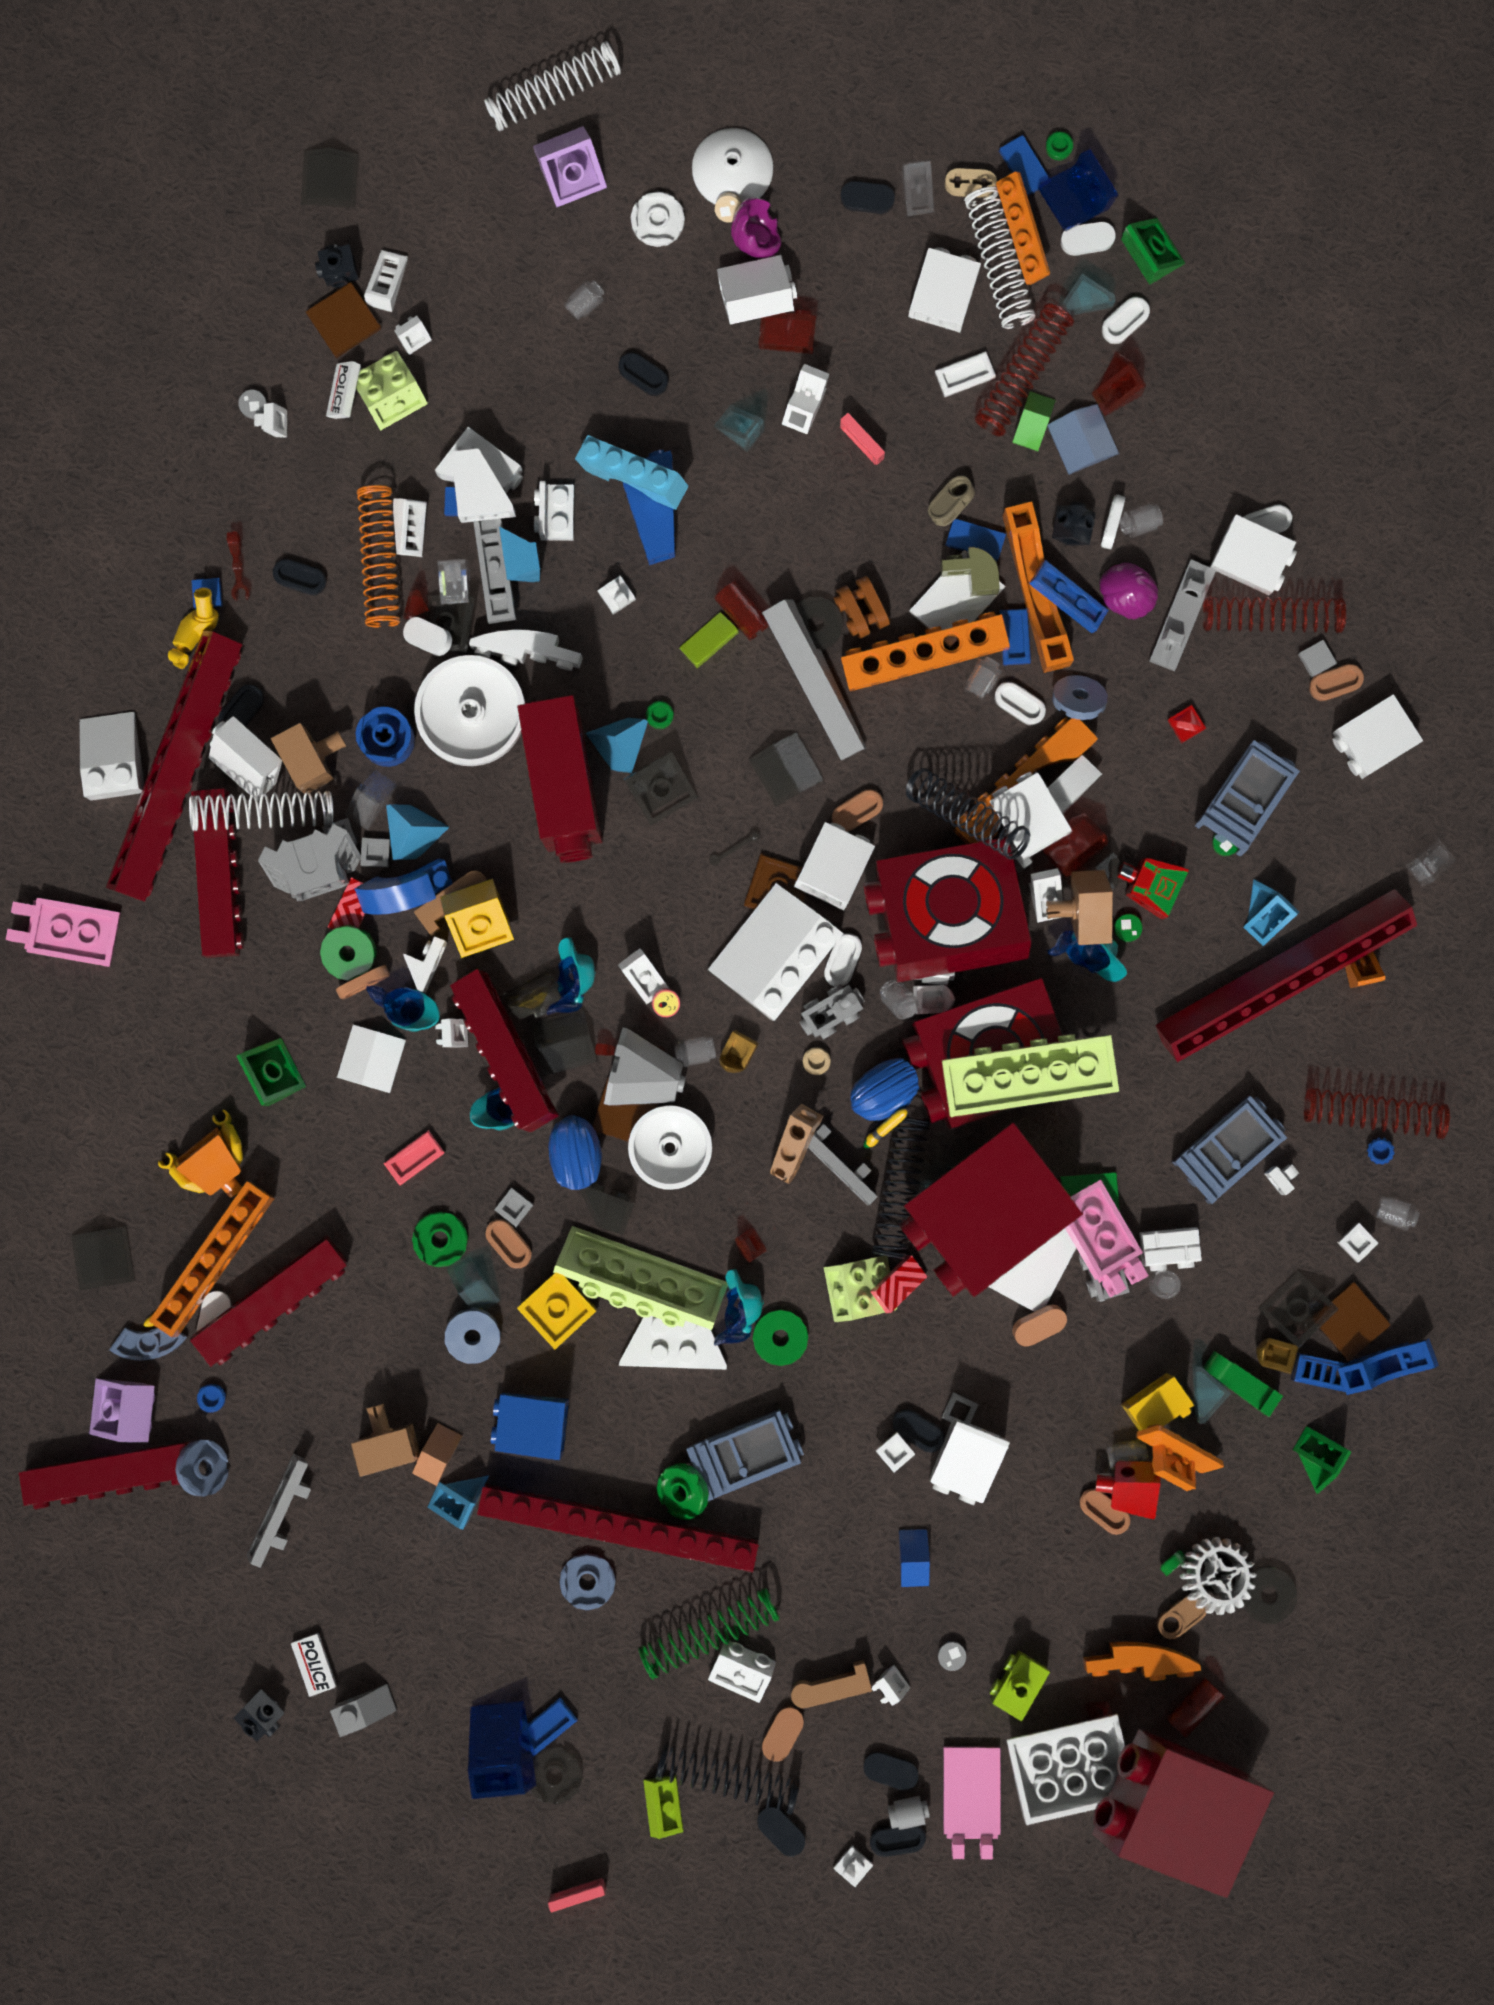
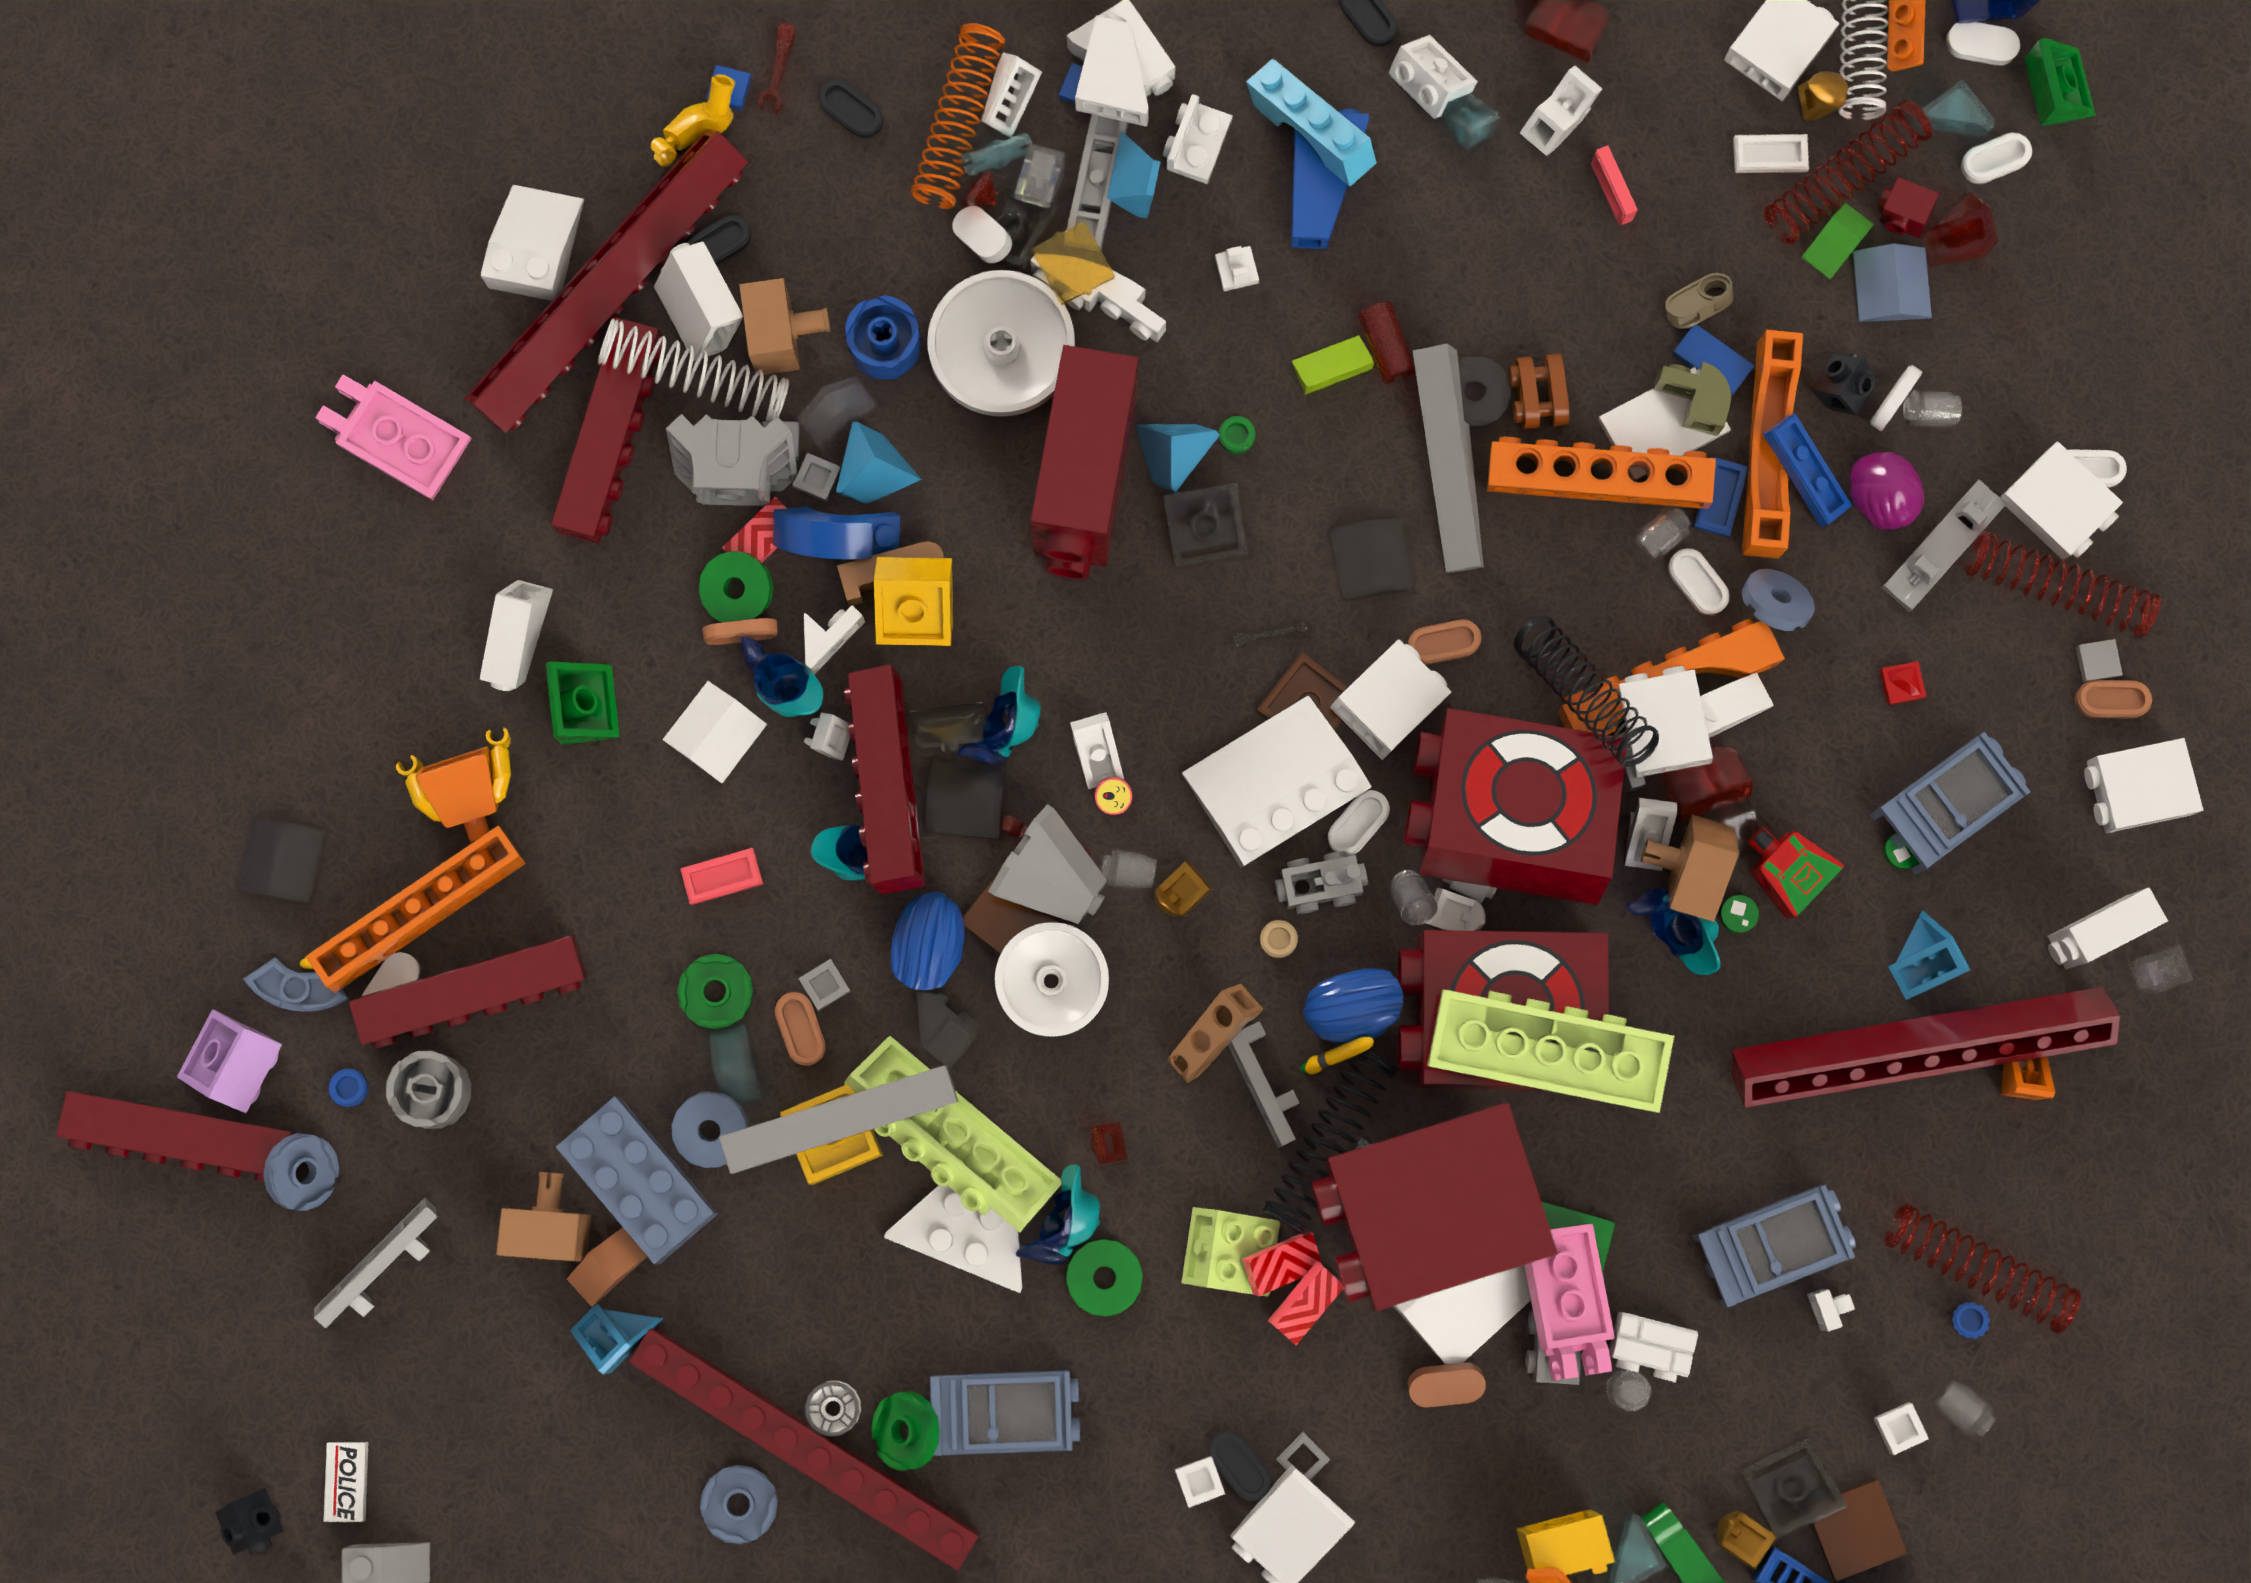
camera: 15 degrees right, 5 degrees down
(205, 1041) = (514, 634): none -> white slope
(268, 1380) = (428, 1090): none -> light grey brick
(416, 574) = (996, 154): none -> clear light blue pin
(435, 1389) = (637, 1180): none -> sand blue piece
(500, 635) = (1073, 263): none -> clear yellow piece
(530, 1425) = (741, 1272): blue slope -> none
(559, 1299) = (838, 1119): none -> light grey slope
(626, 1505) = (826, 1423): none -> wheel
(704, 404) = (1430, 75): none -> white bracket
(924, 1305) = (1306, 1303): none -> coral tile
(987, 319) = (1822, 95): none -> pearl gold plate
(1074, 380) = (1907, 207): none -> dark red brick
(1383, 848) = (2106, 929): none -> white brick

